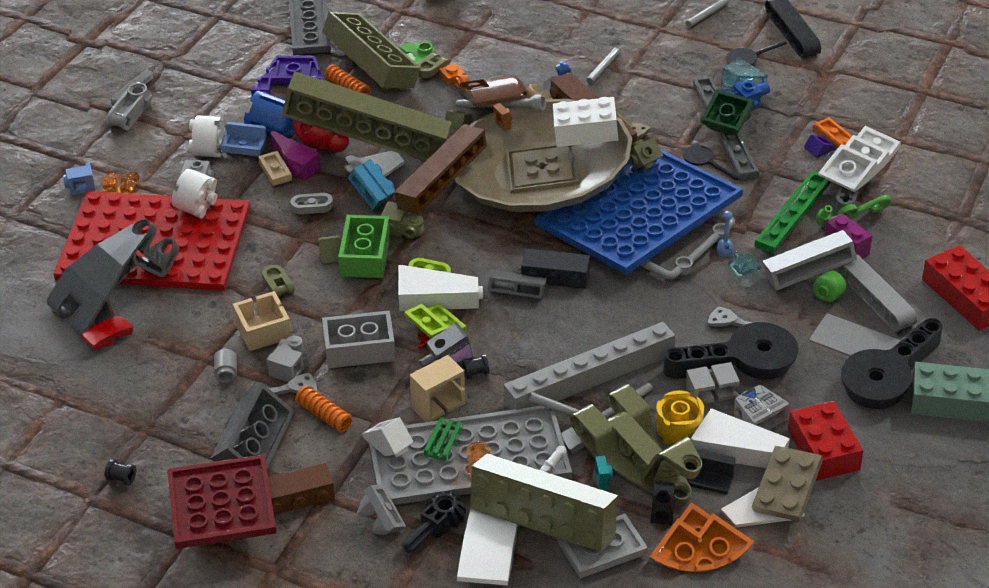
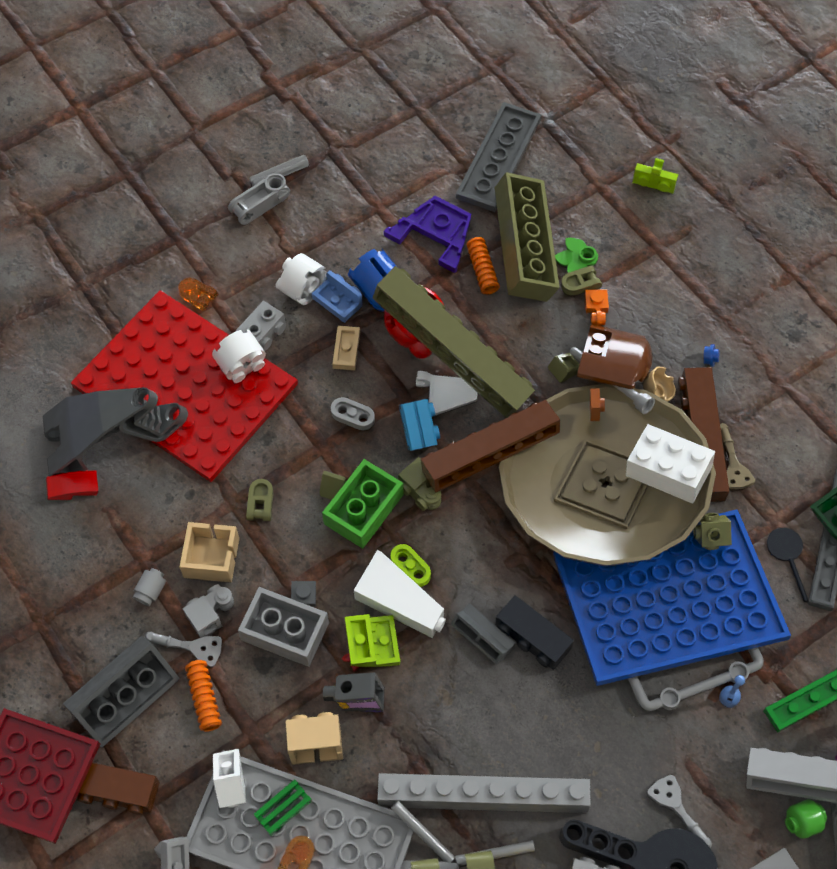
camera: 30 degrees right, 20 degrees up
(79, 179) = (161, 272): medium blue brick -> none
(299, 159) = (374, 350): magenta slope -> none
(475, 366) = (376, 722): black bush -> none
(603, 65) = (757, 367): light grey bar -> none
(743, 263) = (737, 729): clear light blue slope -> none

